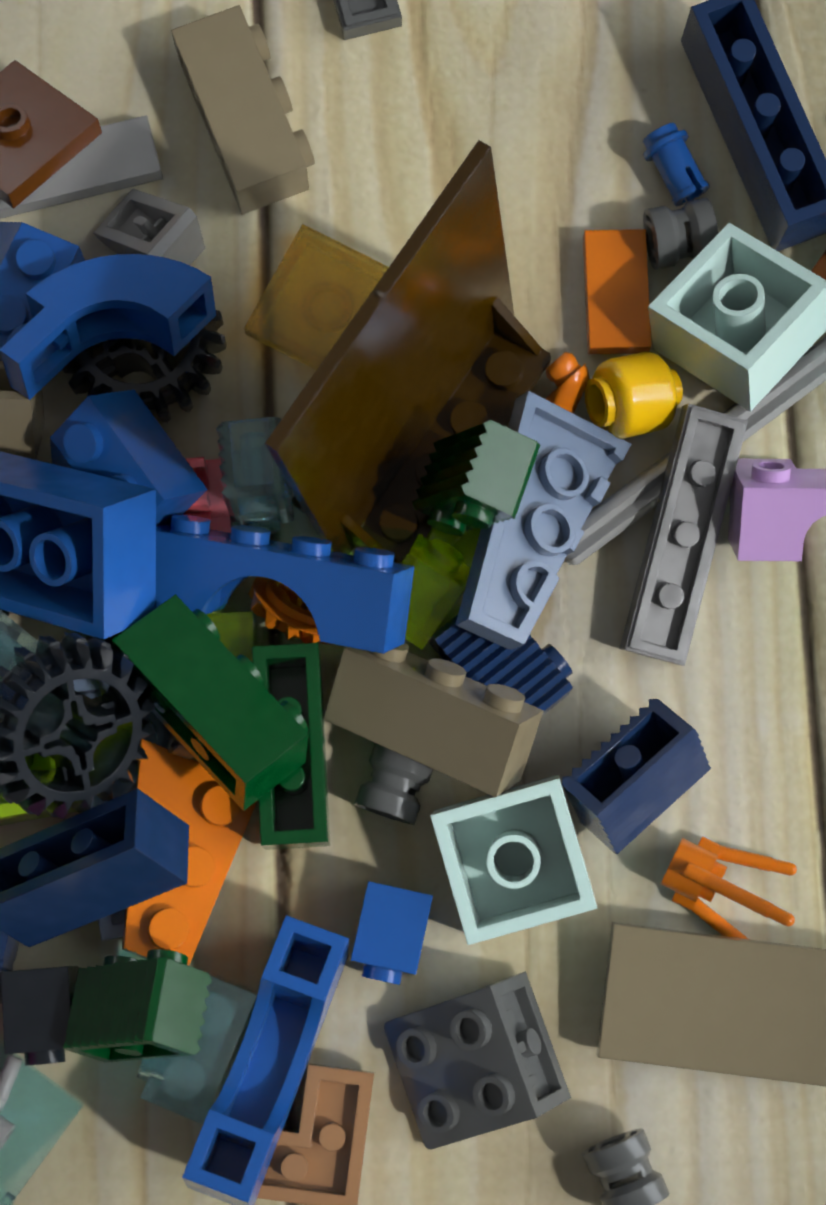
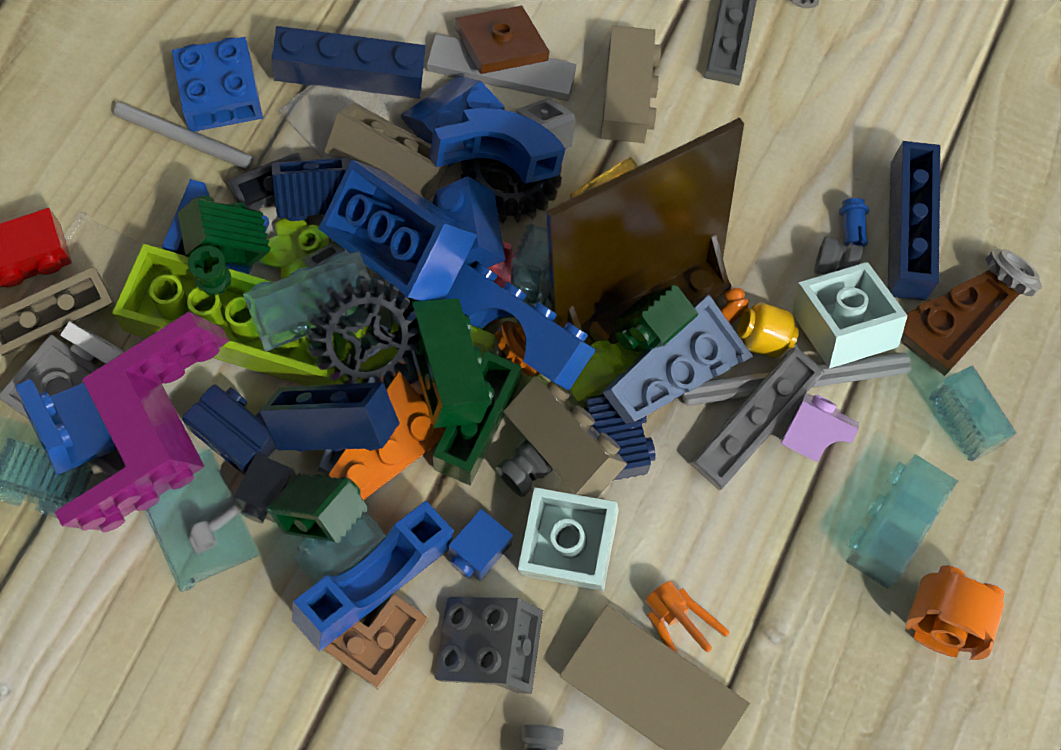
camera: 25 degrees right, 10 degrees down
(616, 291) = (787, 268): orange tile -> none
(636, 775) = (662, 530): dark blue brick -> none

